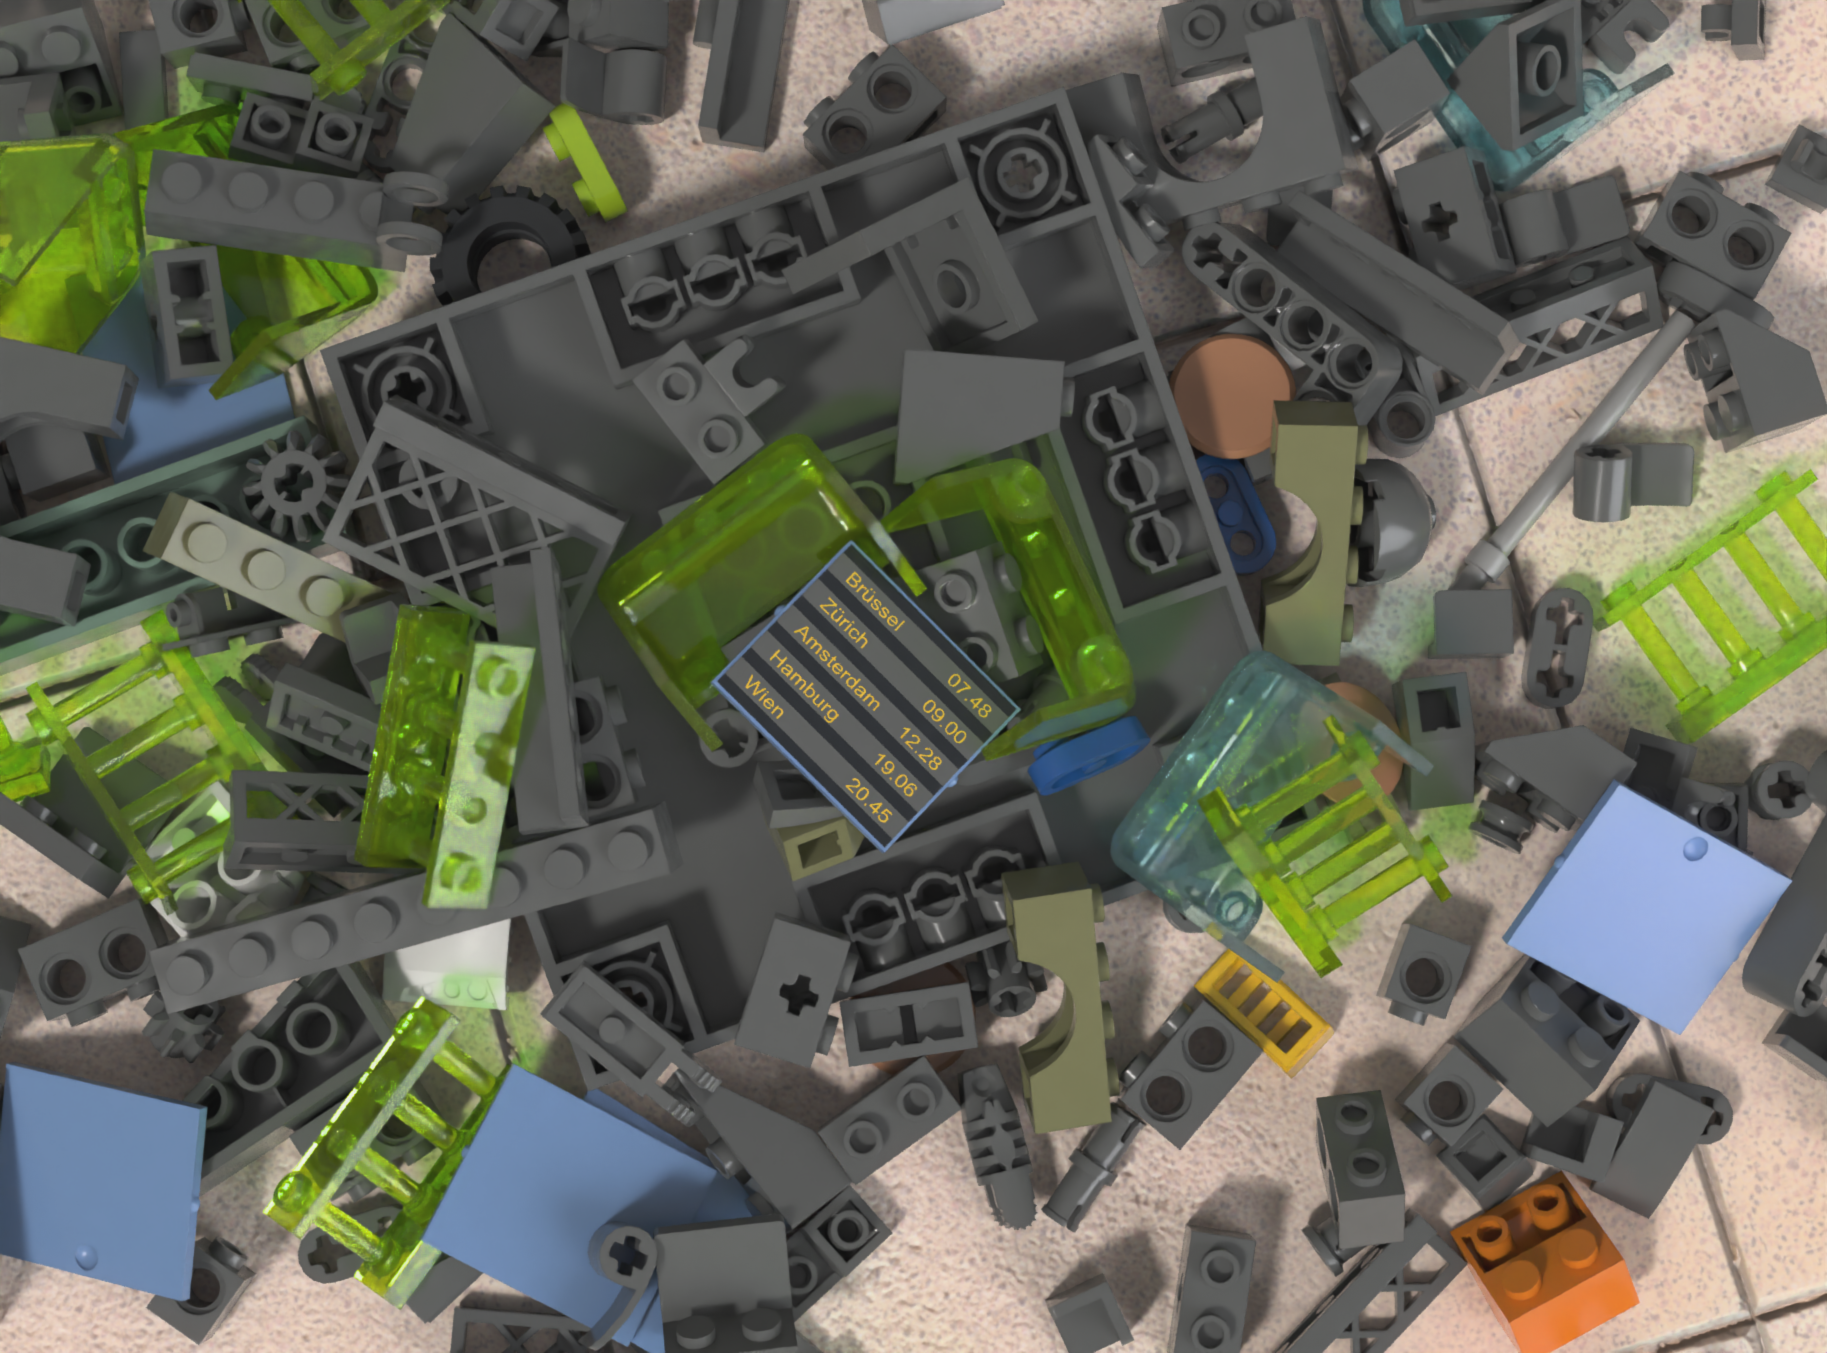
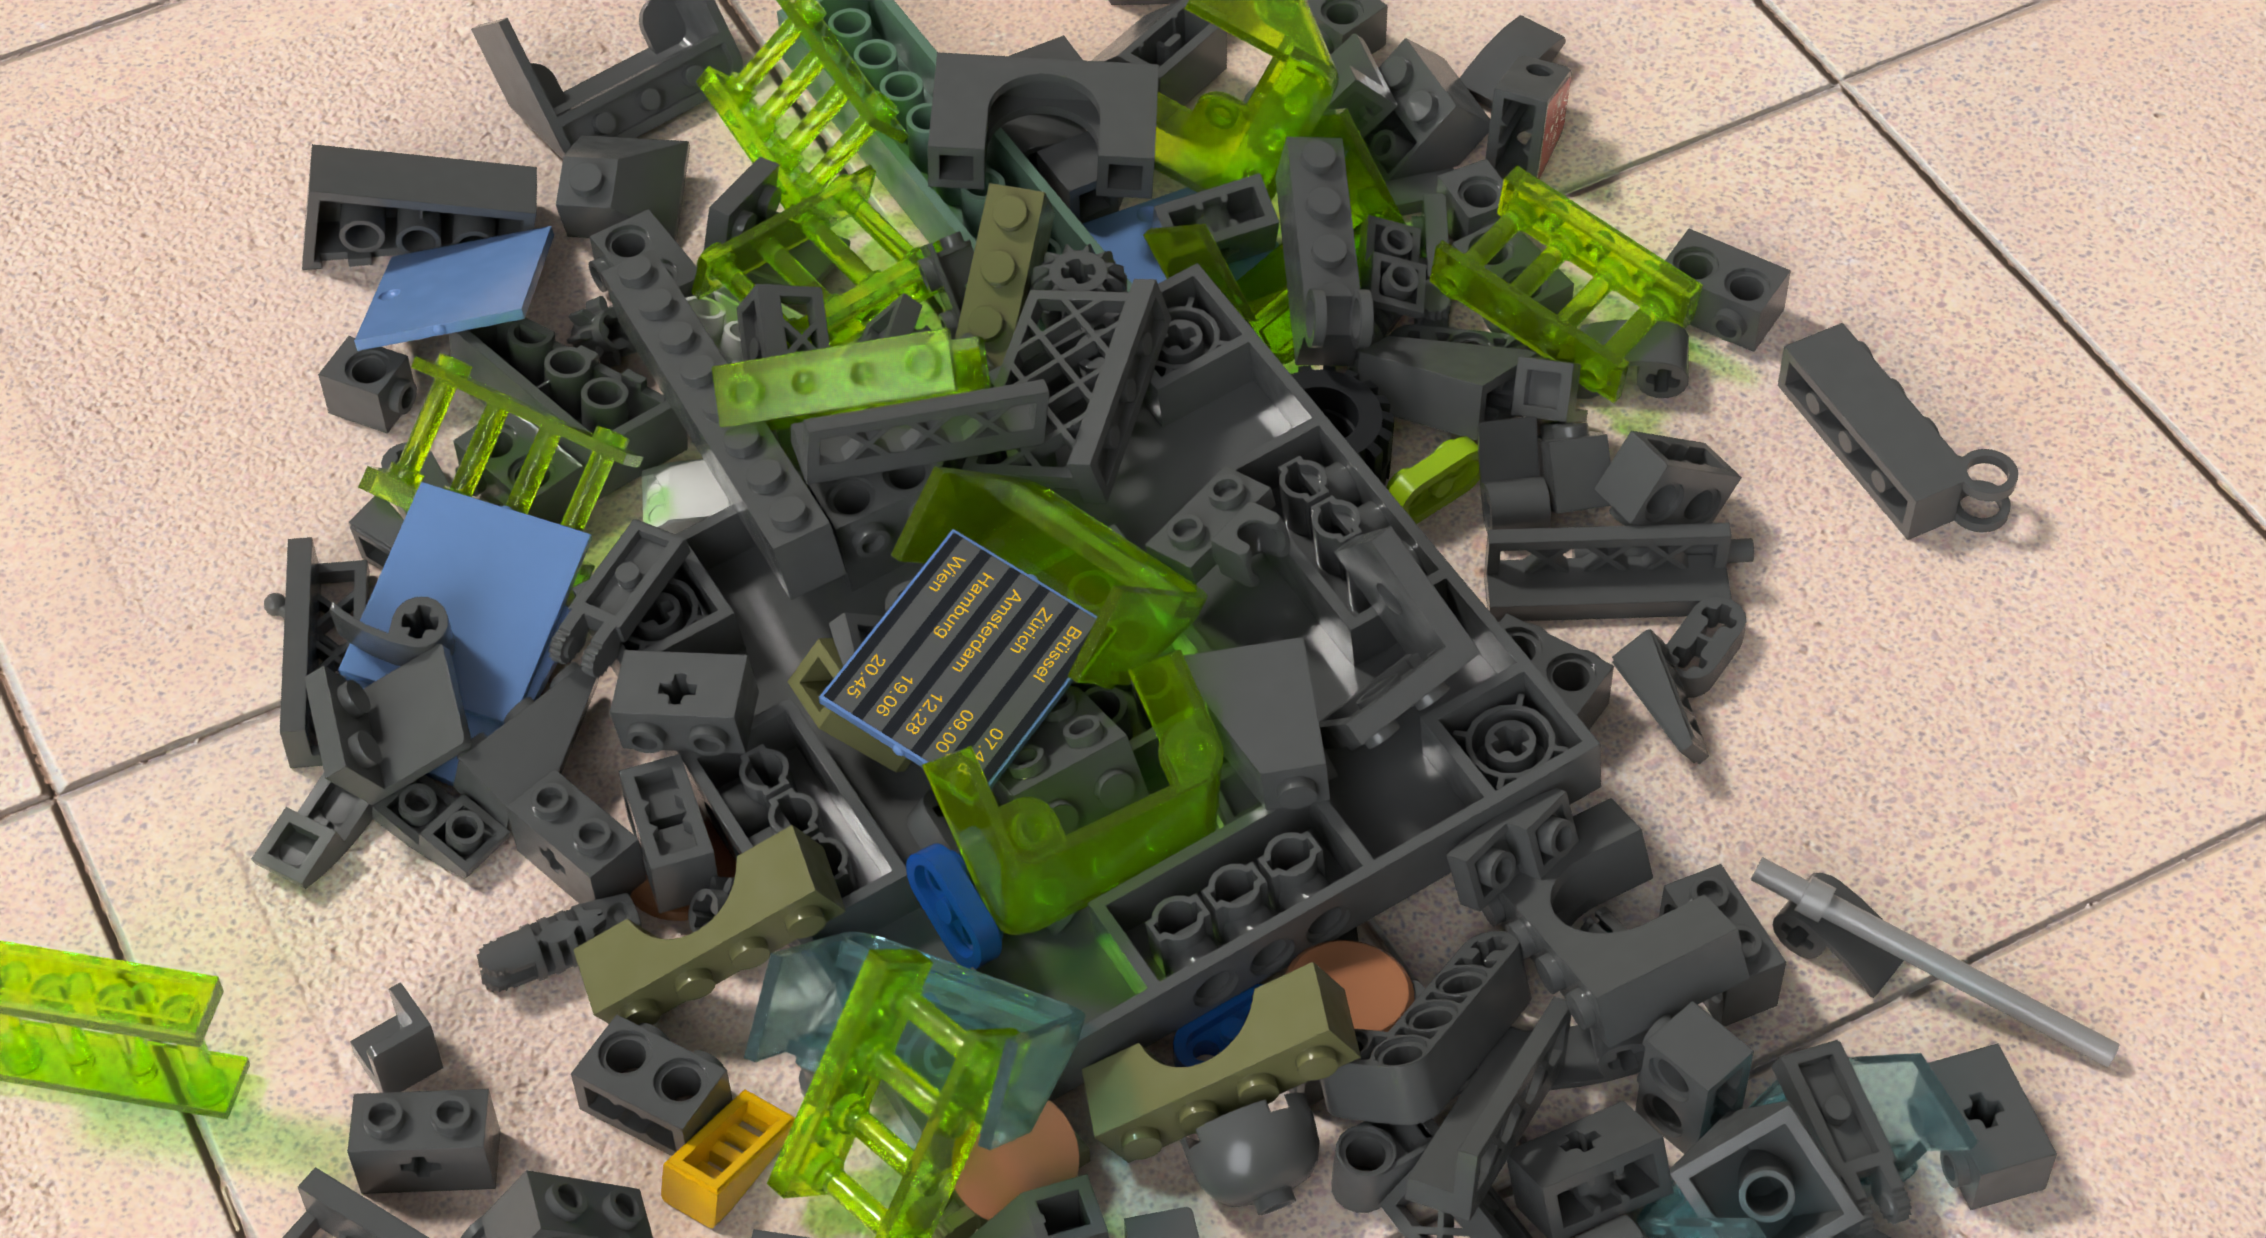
camera: 80 degrees right, 35 degrees down
(1092, 1168) = (543, 1025): dark grey pin -> none

